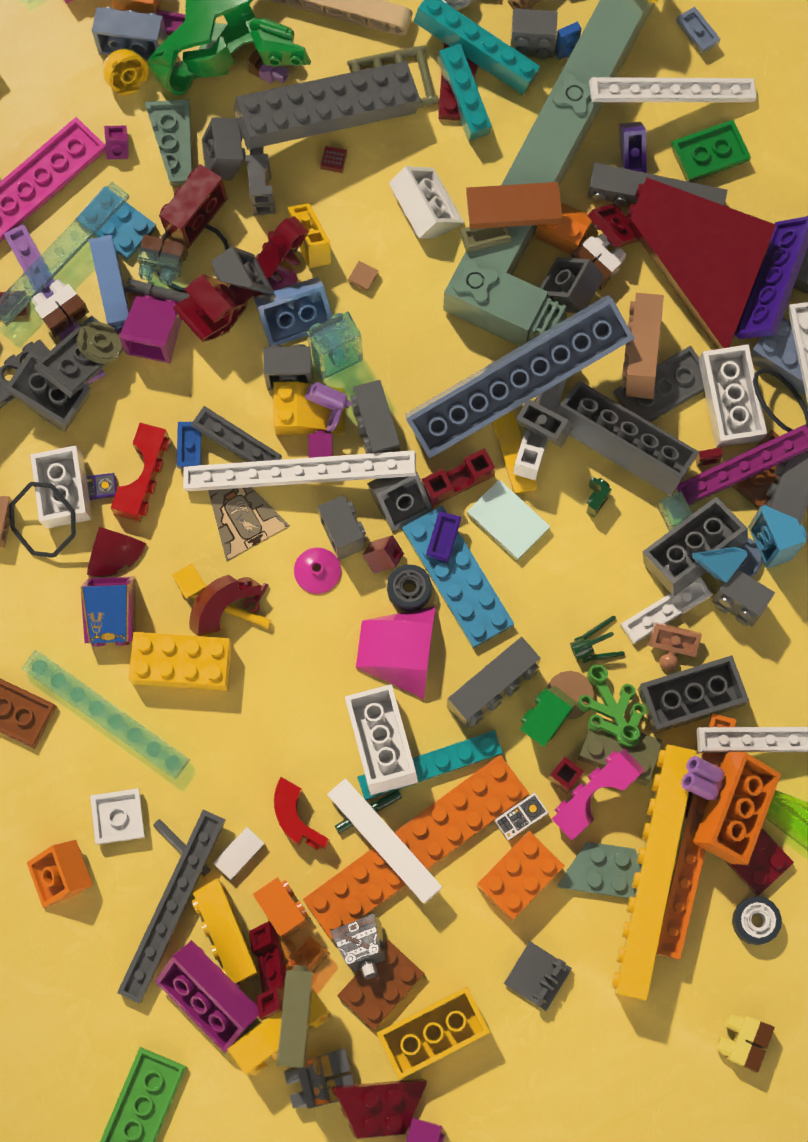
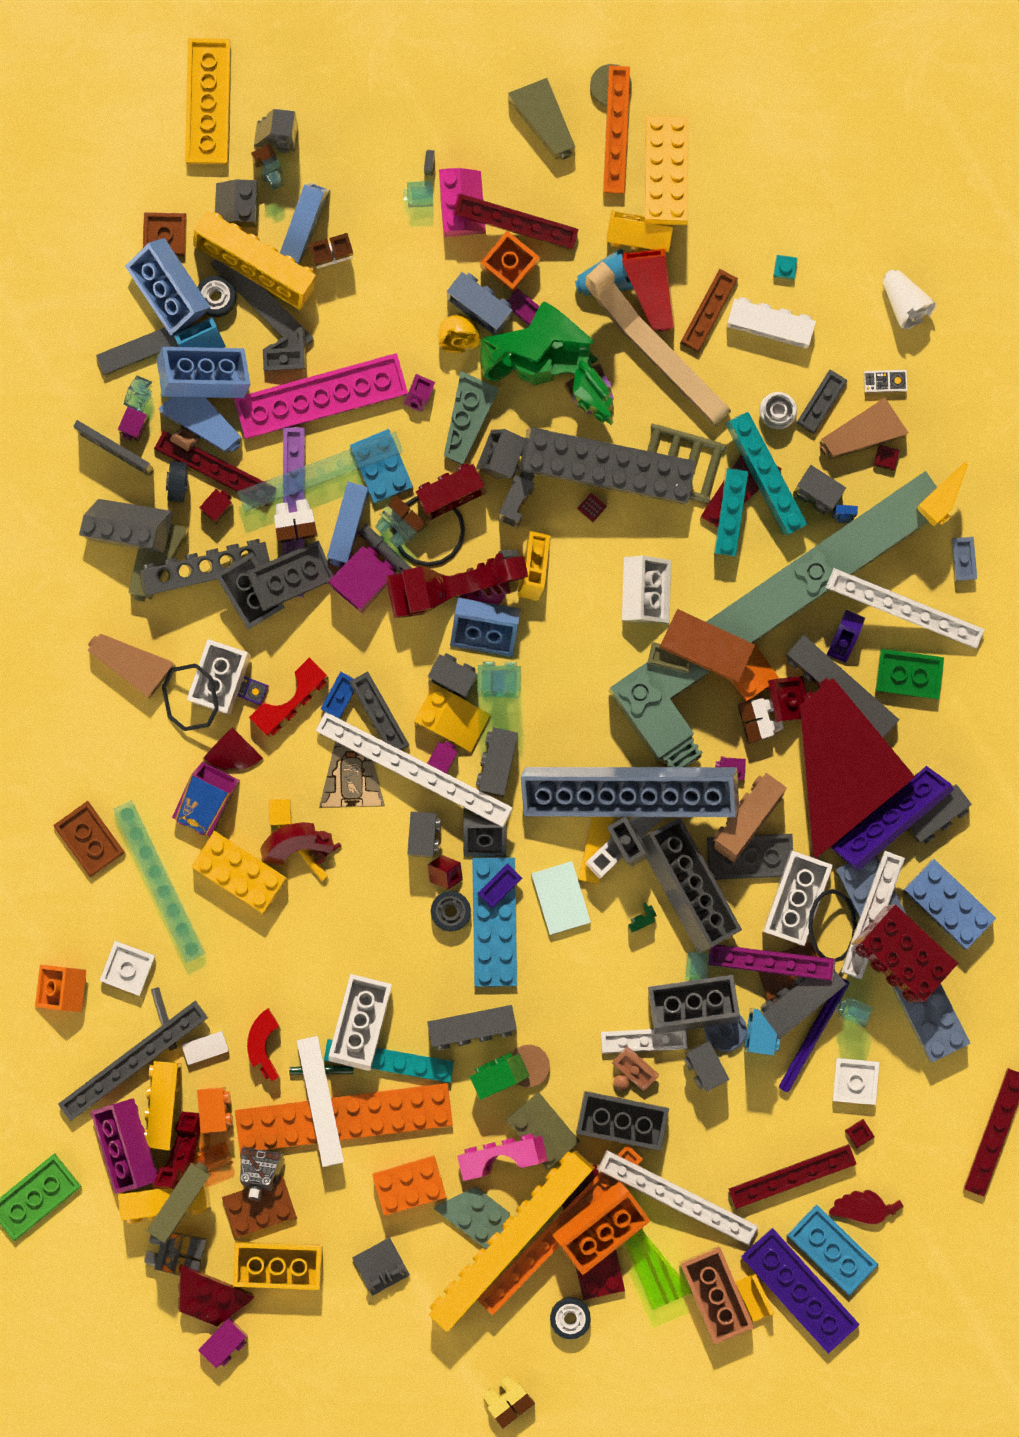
camera: 25 degrees right, 10 degrees up
(99, 343) = (311, 571): olive tile -> none
(241, 270) = (456, 580): dark grey slope -> none
(319, 581) = (388, 866): dark pink dish -> none
(330, 399) = (470, 722): medium lavender piece -> none
(363, 276) = (559, 625): medium nougat tile -> none
(398, 648) = (415, 954): dark pink wedge -> none
(445, 485) = (539, 843): dark red arch -> none
(521, 816) = (436, 1139): tile -> none
(565, 775) = (487, 1128): dark red brick -> none
(572, 282) = (720, 731): dark grey brick -> none
(583, 647) = (559, 1035): dark green plant -> none
(612, 709) = (553, 1098): bright green plant -> none
(703, 778) = (584, 1194): medium lavender piece -> none
(709, 456) = (751, 936): dark red tile -> none
(721, 562) = (701, 1031): dark azure slope -> none

